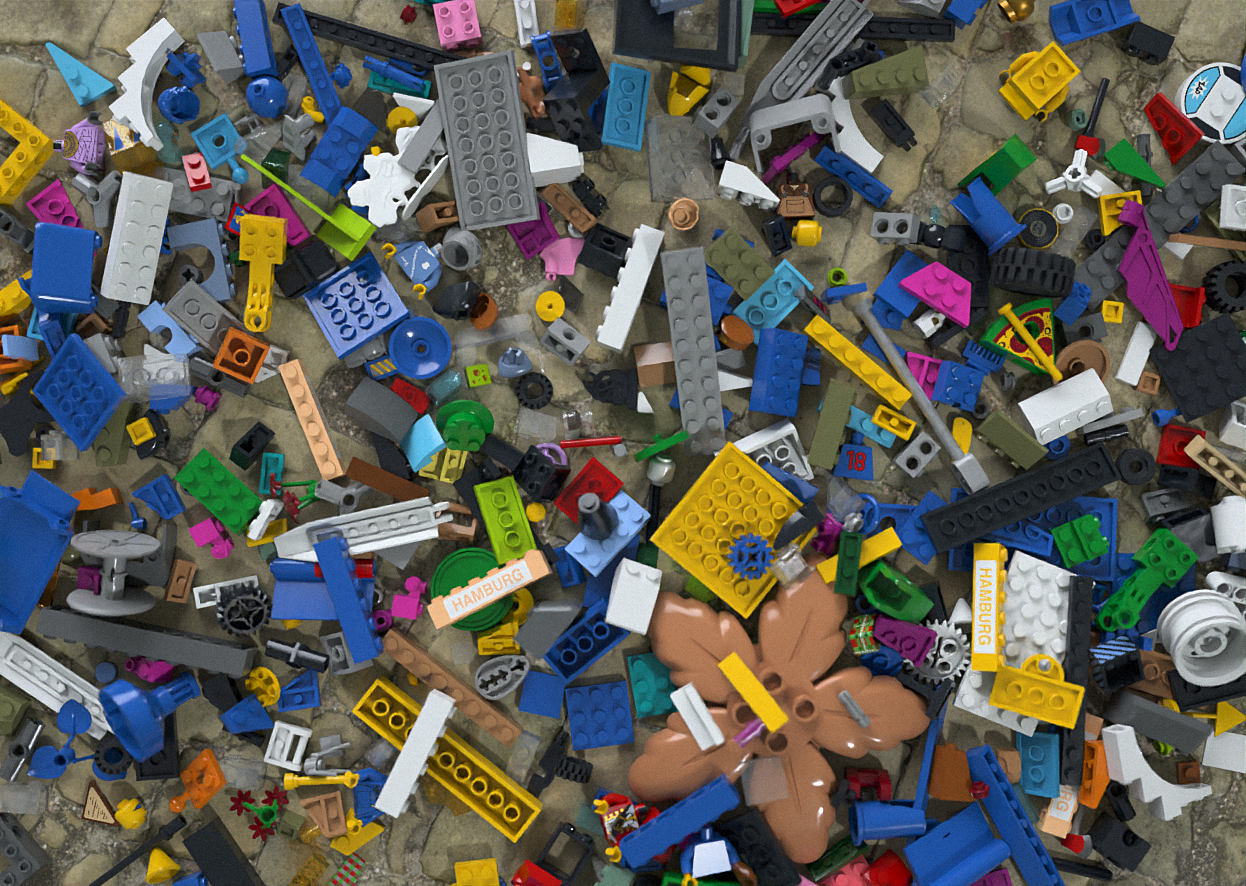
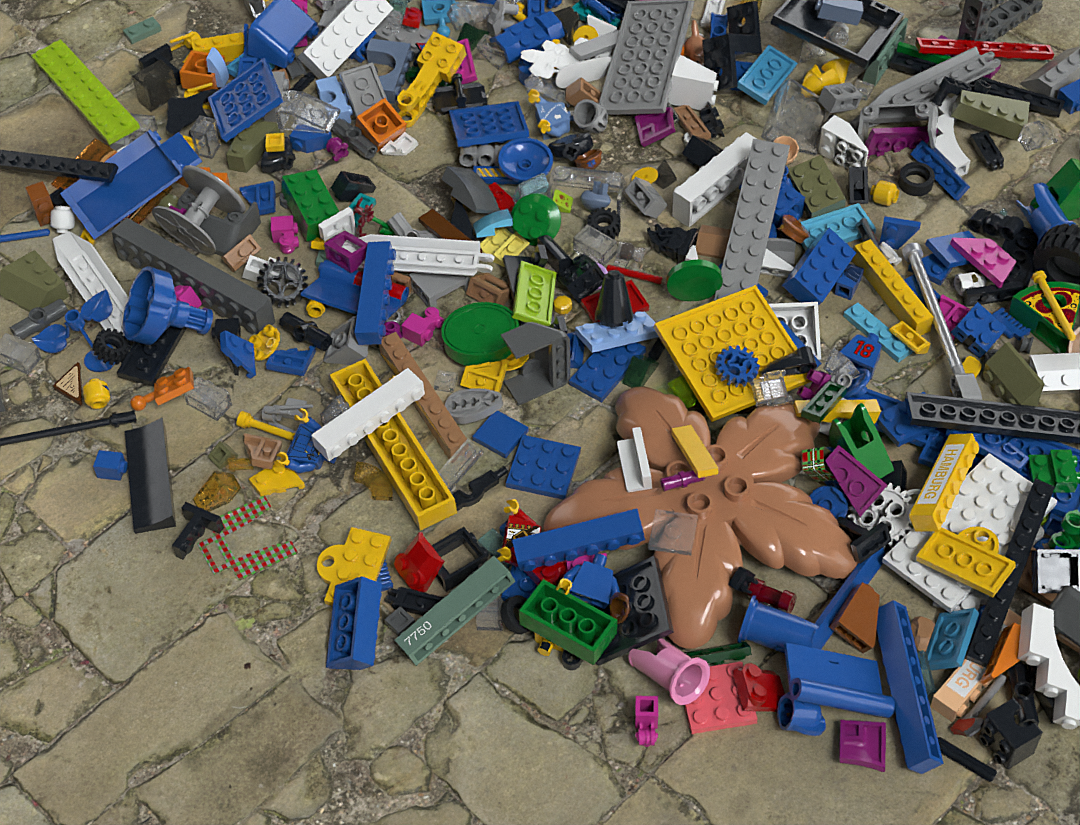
camera: 25 degrees right, 35 degrees down
(160, 867) = (92, 441): yellow hat -> none
(252, 737) = (226, 372): black pin -> none
(266, 814) = (216, 421): dark red plant -> none
(274, 548) = (343, 257): none -> magenta tile
(281, 743) = (253, 390): white plate -> none
(313, 420) = (412, 181): light nougat brick -> none
(343, 229) = (489, 55): lime piece -> none
(489, 589) = (489, 325): light nougat brick -> none
(561, 257) = (667, 150): bright pink arm -> none
(573, 769) = (498, 488): black tyre -> none
(584, 642) = (560, 395): blue brick -> none
(620, 450) = (656, 287): light grey piece -> none
(633, 596) = (620, 368): white slope -> none
(651, 685) = (599, 456): teal plate -> none
(661, 469) = (685, 303): white head -> none
(795, 199) = (882, 167): torso -> none
(830, 424) = (851, 310): olive brick -> none
(844, 324) = (889, 252): none -> white piece
(854, 709) = (783, 505): light grey axle -> none
(895, 223) = (962, 207): light grey brick -> none
(912, 450) = (921, 368): light grey brick -> none
(979, 790) = (882, 634): dark red plate -> none
(1058, 448) = (1056, 401): blue piece -> none

